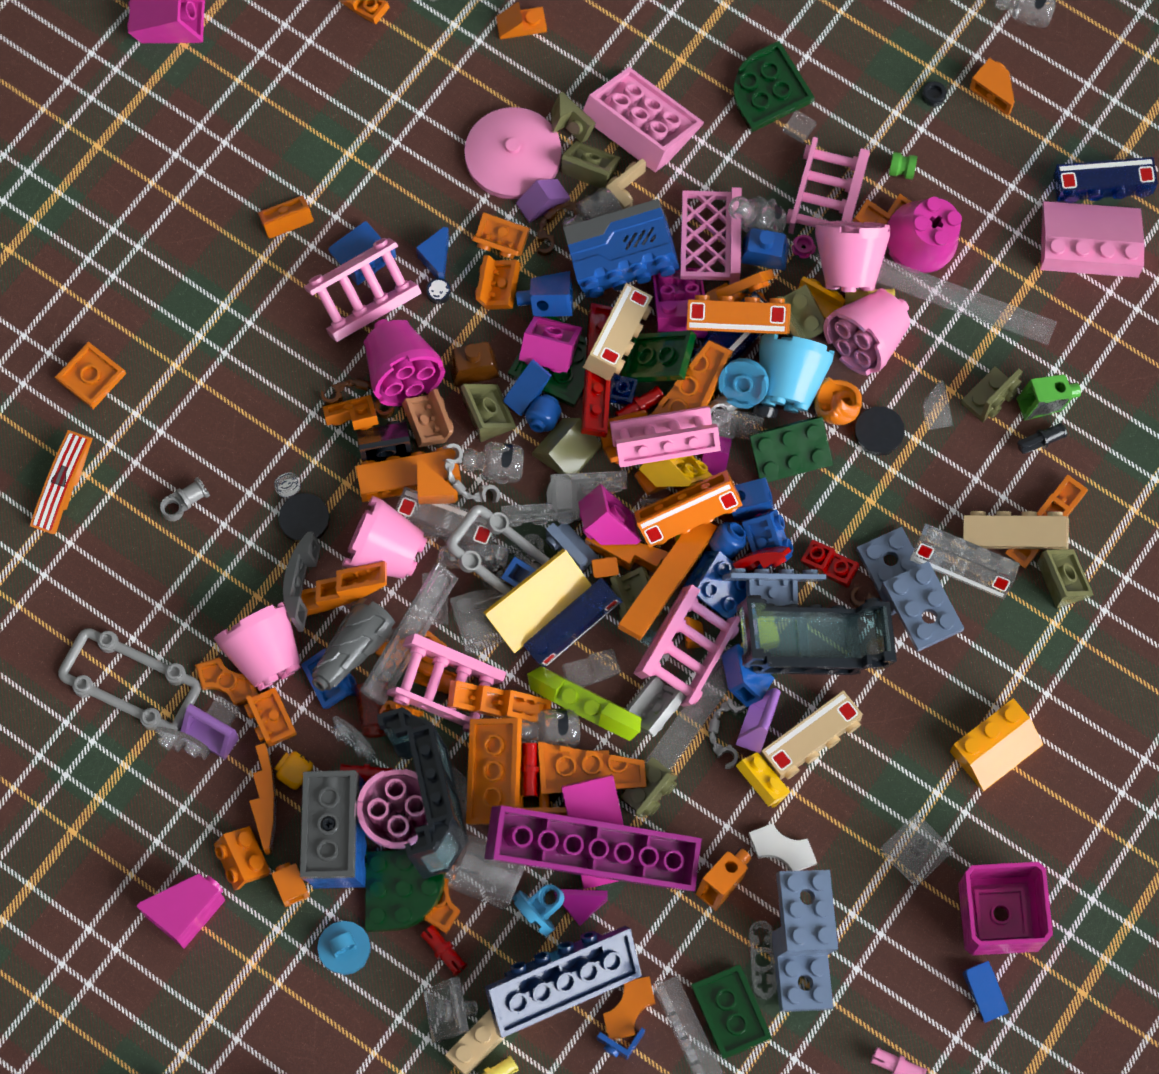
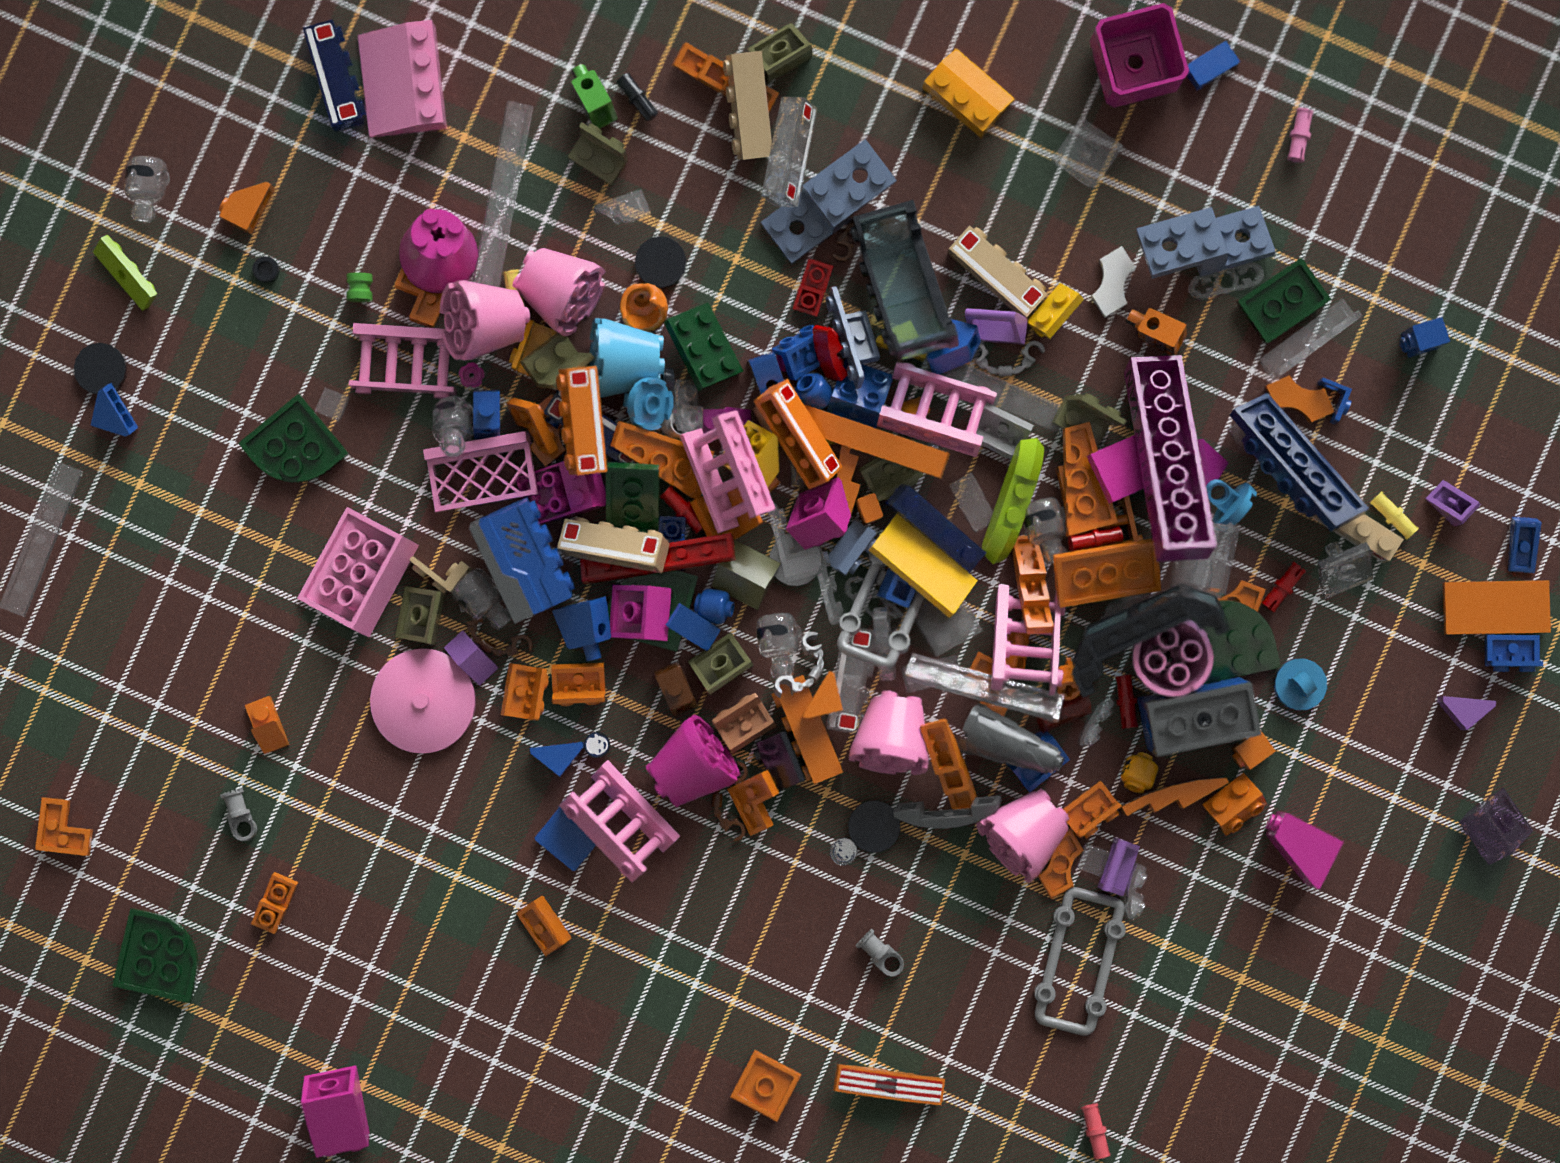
camera: 105 degrees left, 15 degrees up
(569, 116) = (369, 651): olive slope -> none

